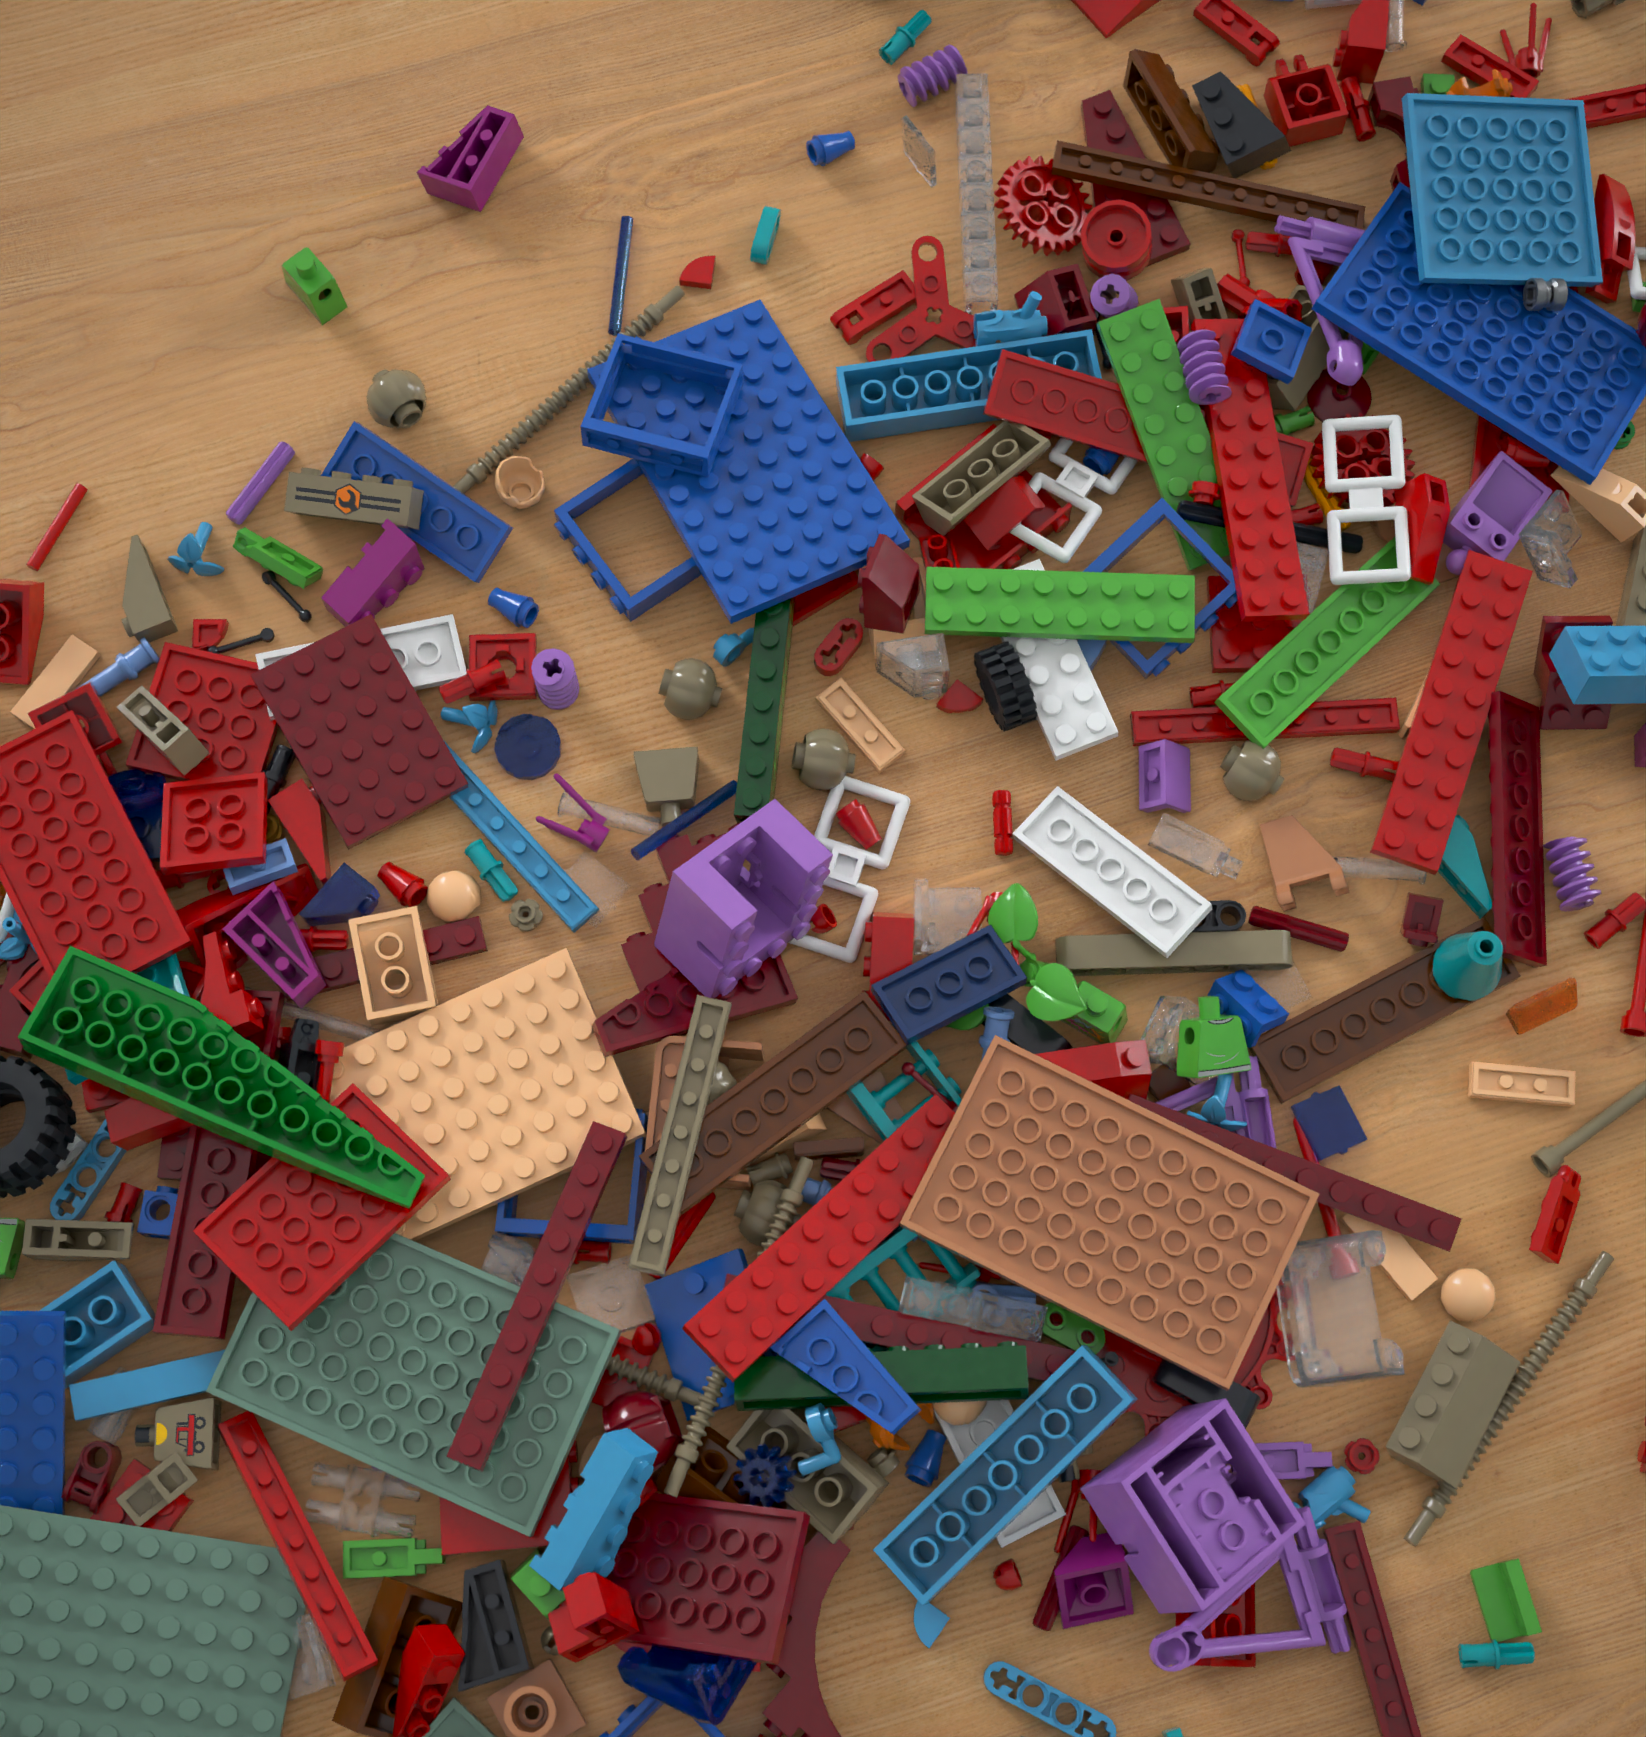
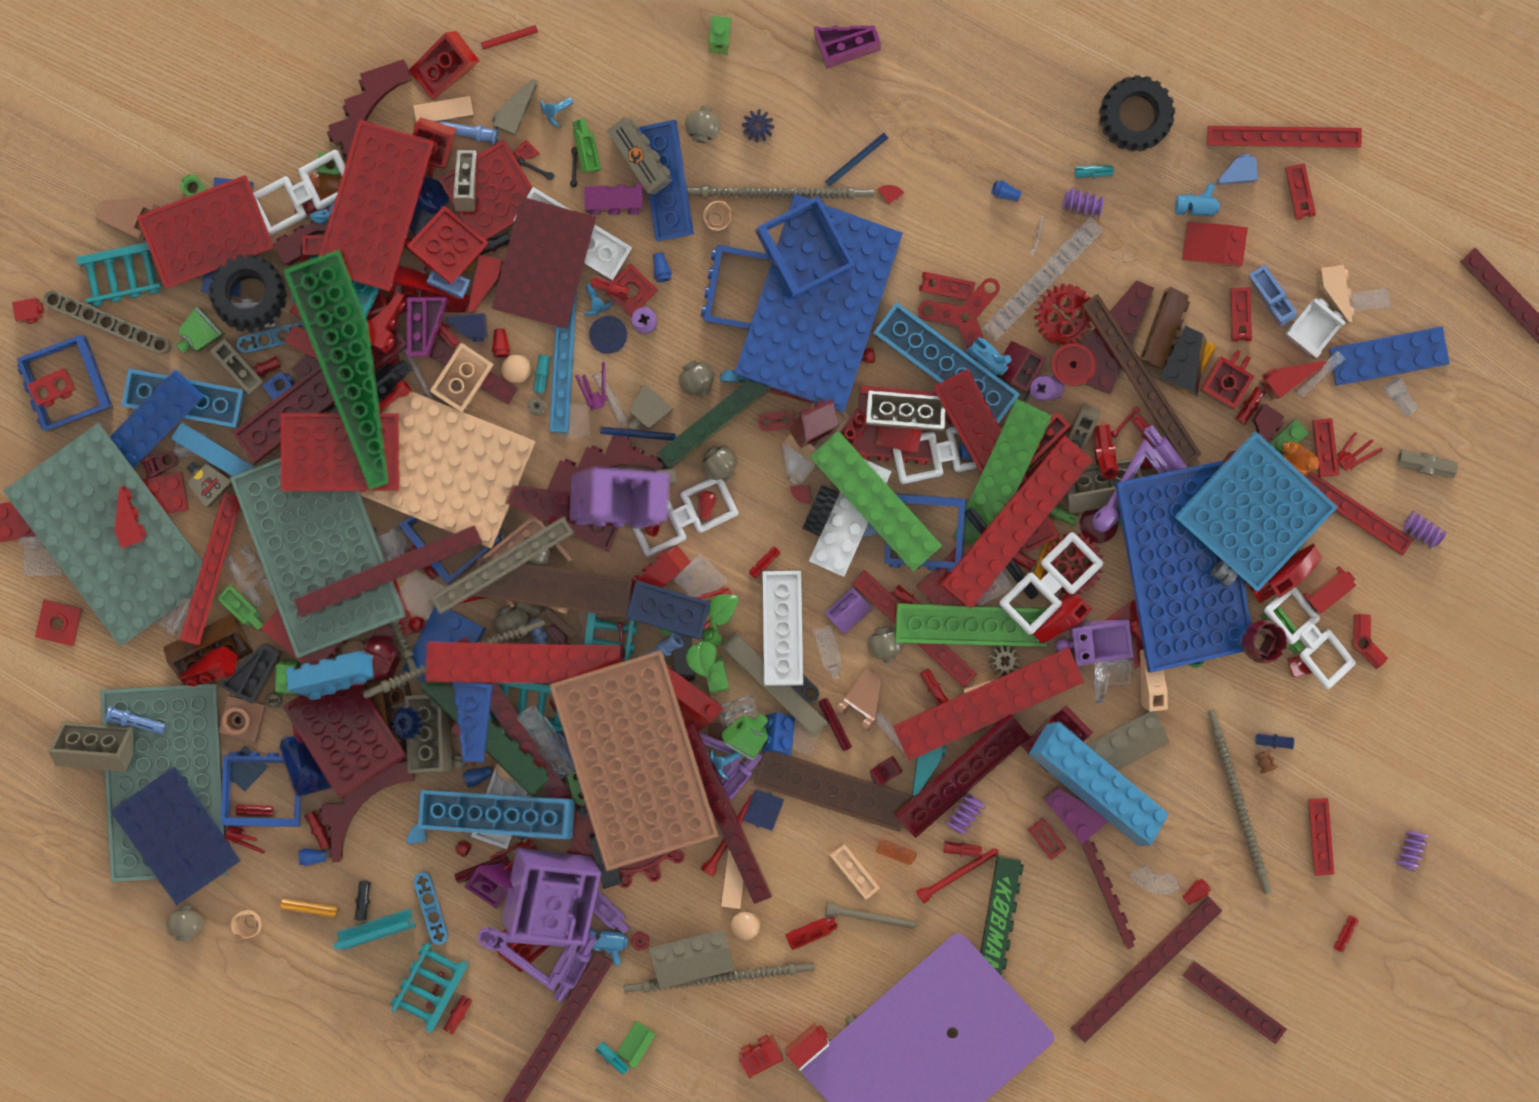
camera: 40 degrees right, 15 degrees up
(119, 1595) = (126, 523): none -> red slope
(156, 1489) = (177, 494): dark tan slope -> none
(260, 483) = (611, 103): medium lavender axle -> none
(464, 343) = (763, 122): none -> clear blue gear
(591, 1617) = (291, 710): red brick -> none
(765, 235) = (935, 205): teal beam -> none
(821, 1425) = (444, 728): dark azure plate -> none
(860, 725) = (750, 463): light nougat tile -> none
(1203, 368) = (1038, 463): medium lavender piece -> none
(1204, 492) = (986, 514): red plate -> none
(1271, 341) = (1083, 479): blue plate -> none
(1332, 1313) = (681, 880): clear windscreen -> none
(1402, 656) = (1011, 660): none -> dark tan gear
(1468, 965) = (878, 800): teal cone -> none

